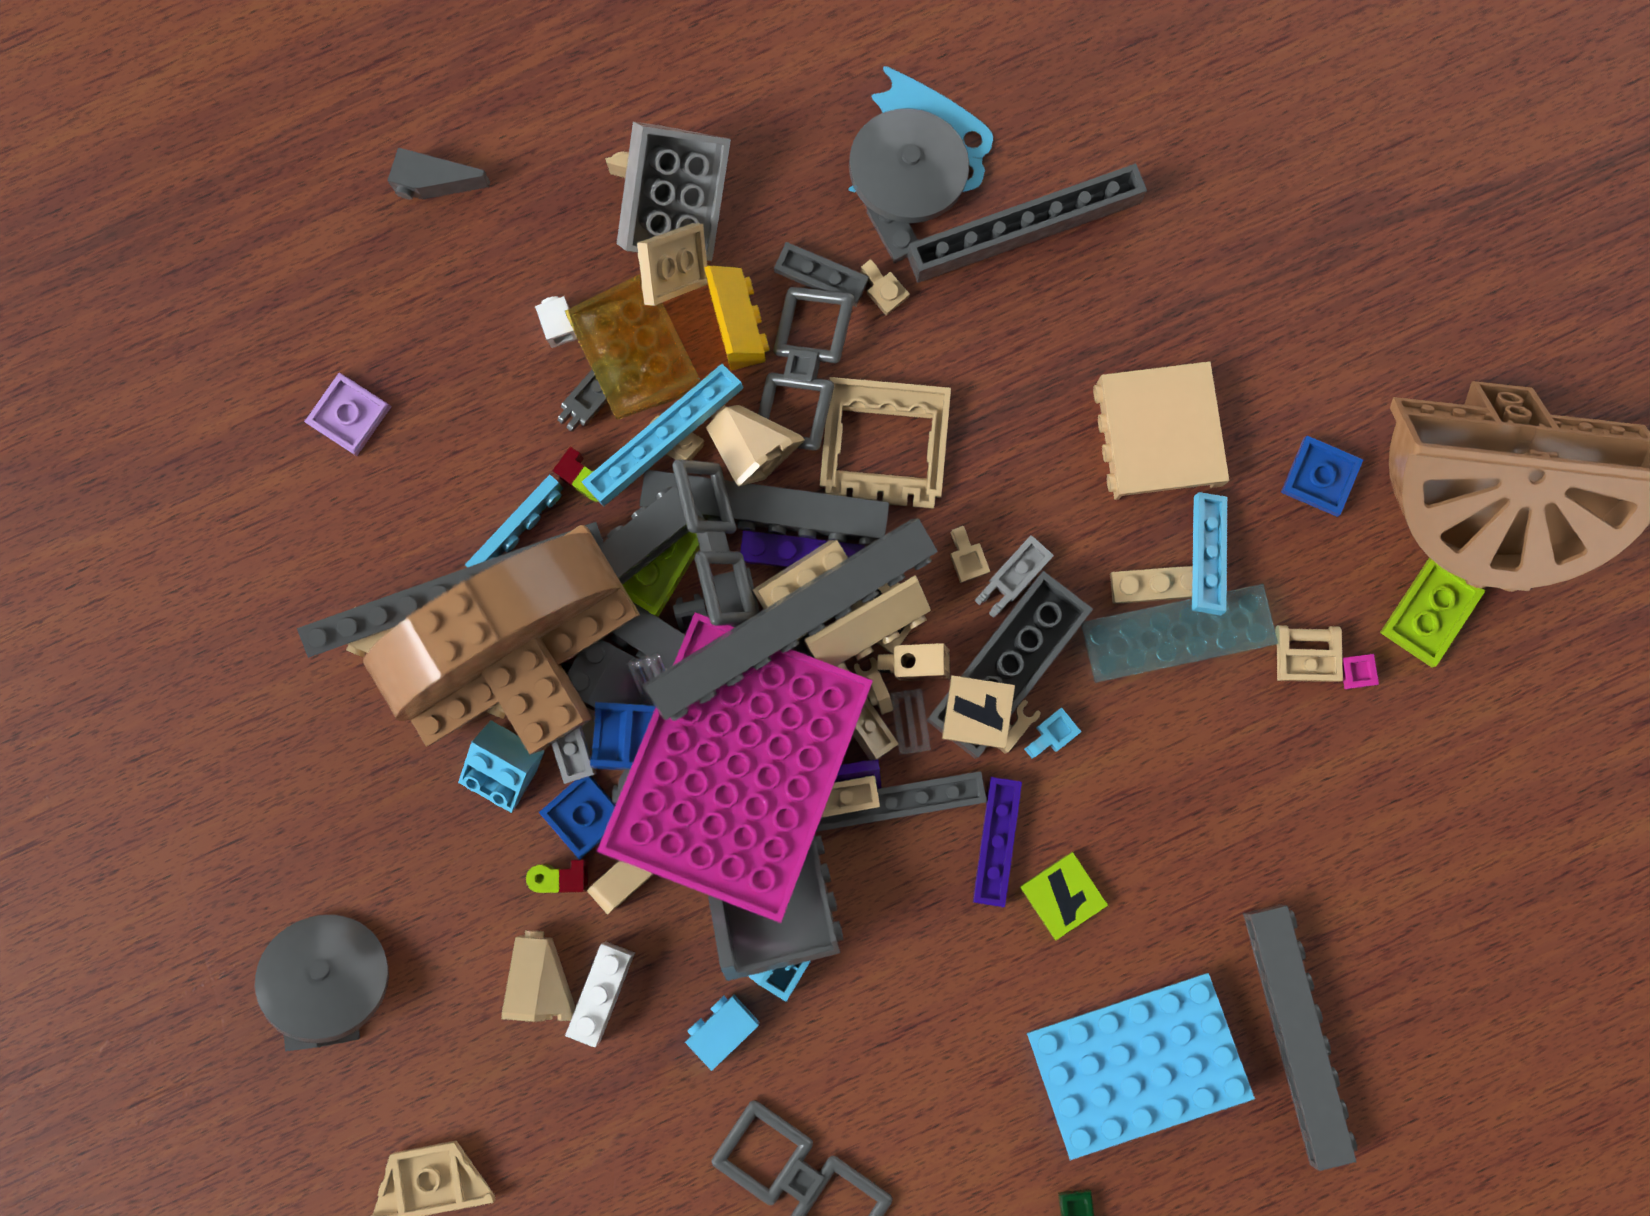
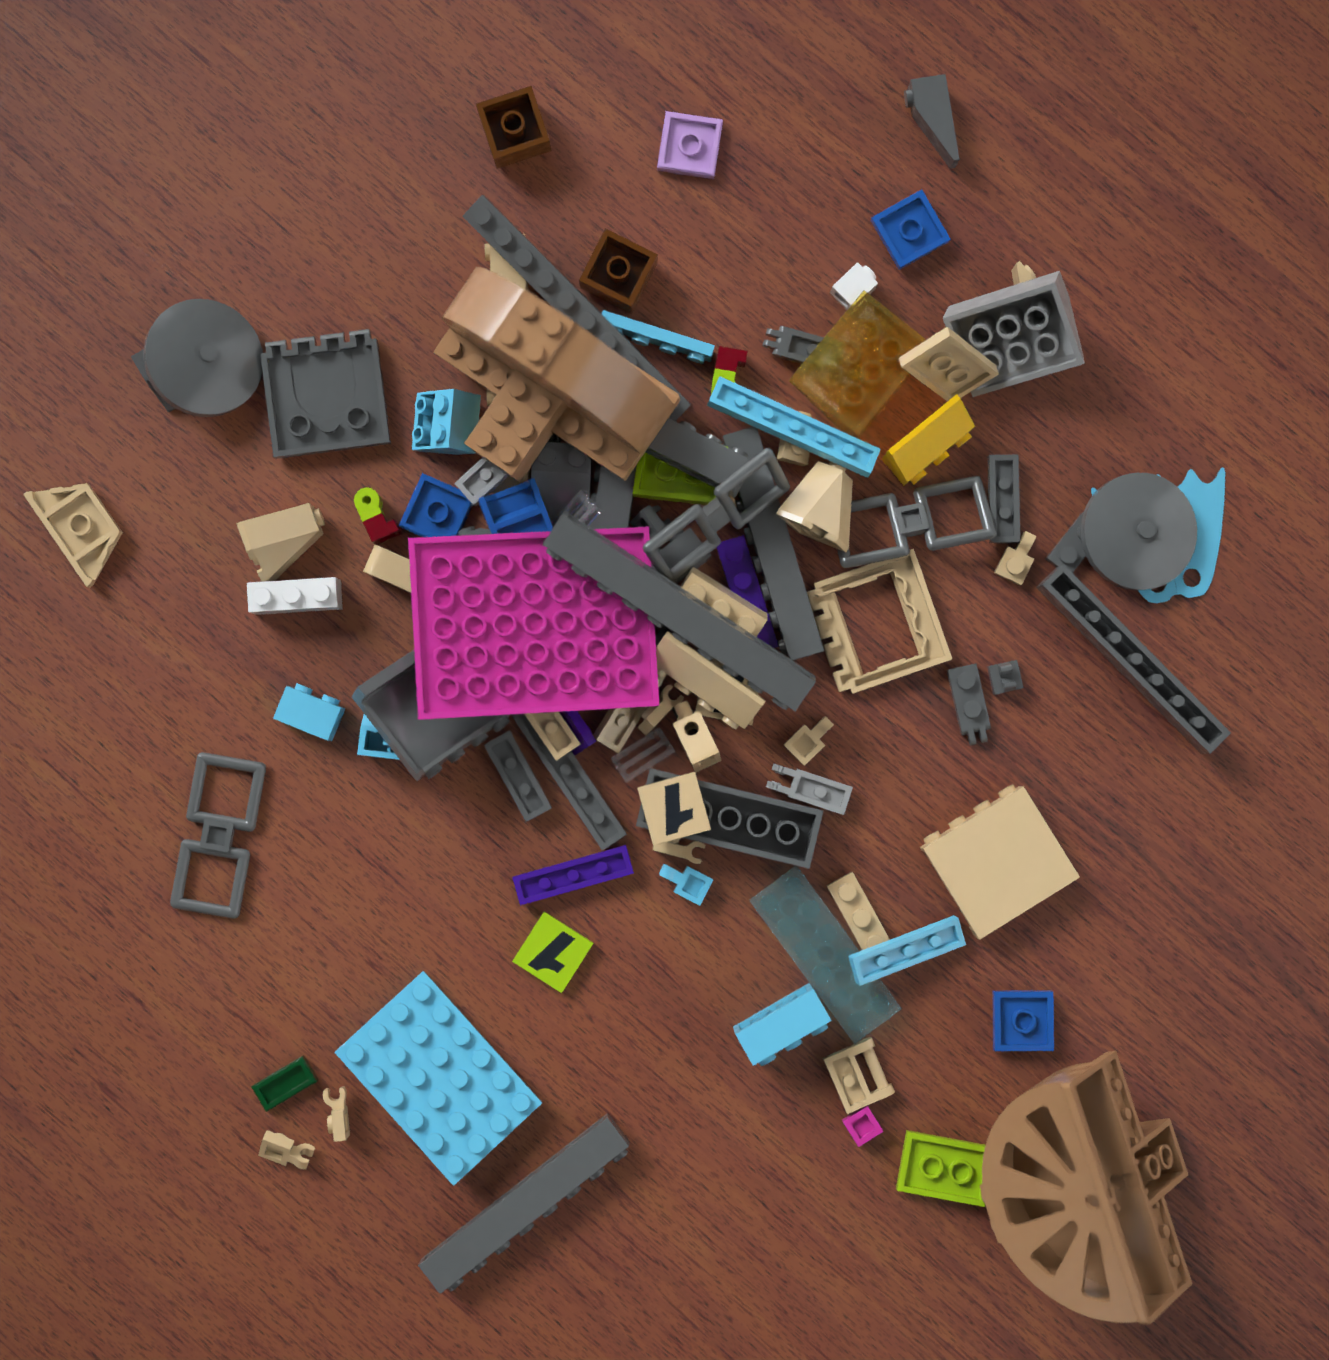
camera: 60 degrees right, 5 degrees up
(247, 570) = (513, 127): none -> reddish brown brick
(416, 874) = (325, 394): none -> dark grey hinge
(434, 533) = (618, 271): none -> reddish brown brick
(528, 246) = (910, 229): none -> blue plate
(877, 852) = (518, 776): none -> dark grey plate
(989, 348) = (1005, 677): none -> dark grey tile
(998, 391) = (969, 702): none -> dark grey hinge
(1140, 1187) = (338, 1120): none -> tan plate
(1232, 703) = (782, 1025): none -> medium azure brick

